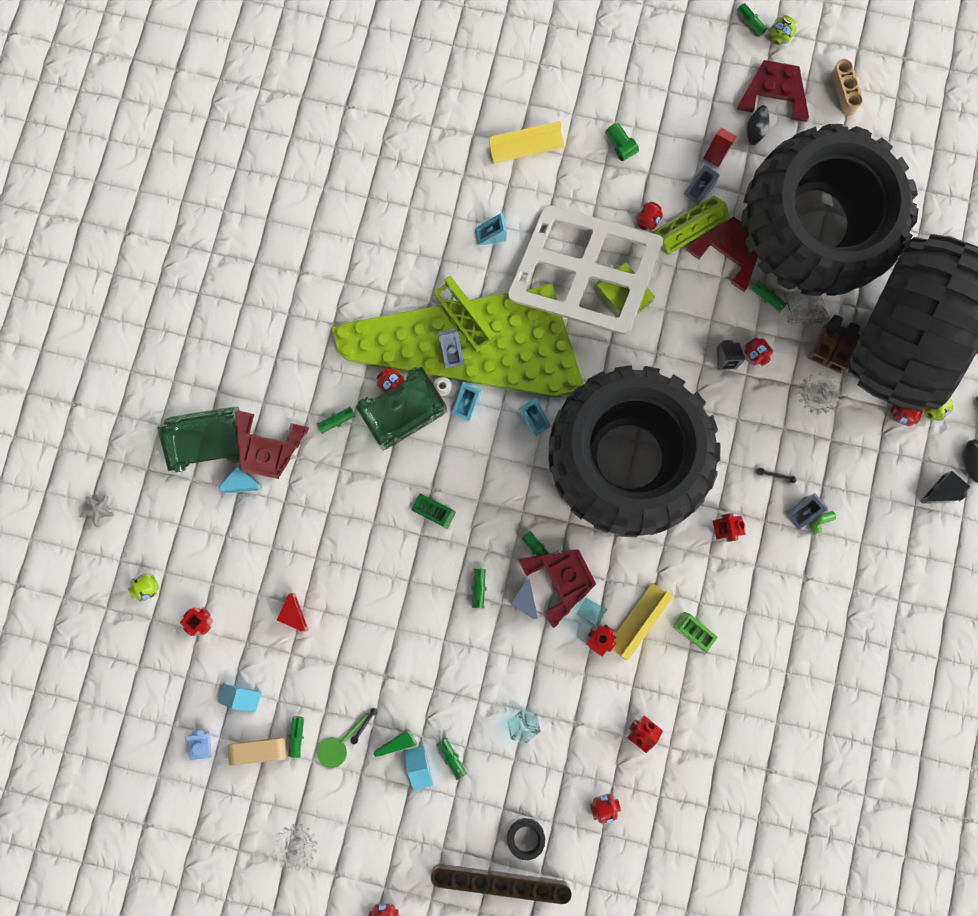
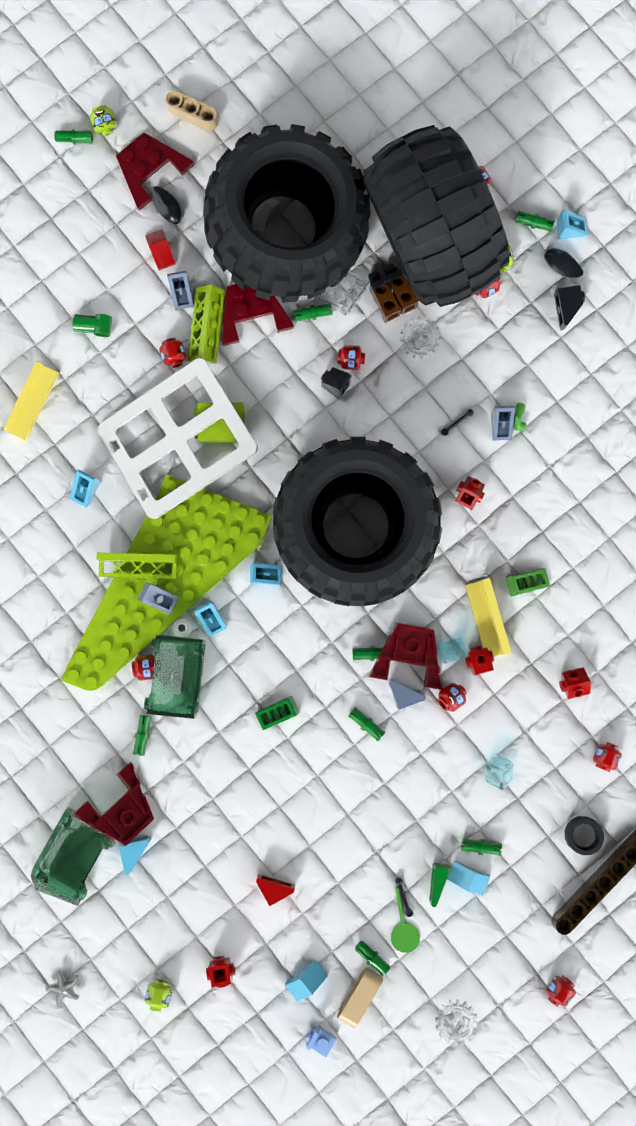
camera: 60 degrees left, 5 degrees up
(553, 640) = (452, 697): none -> red head

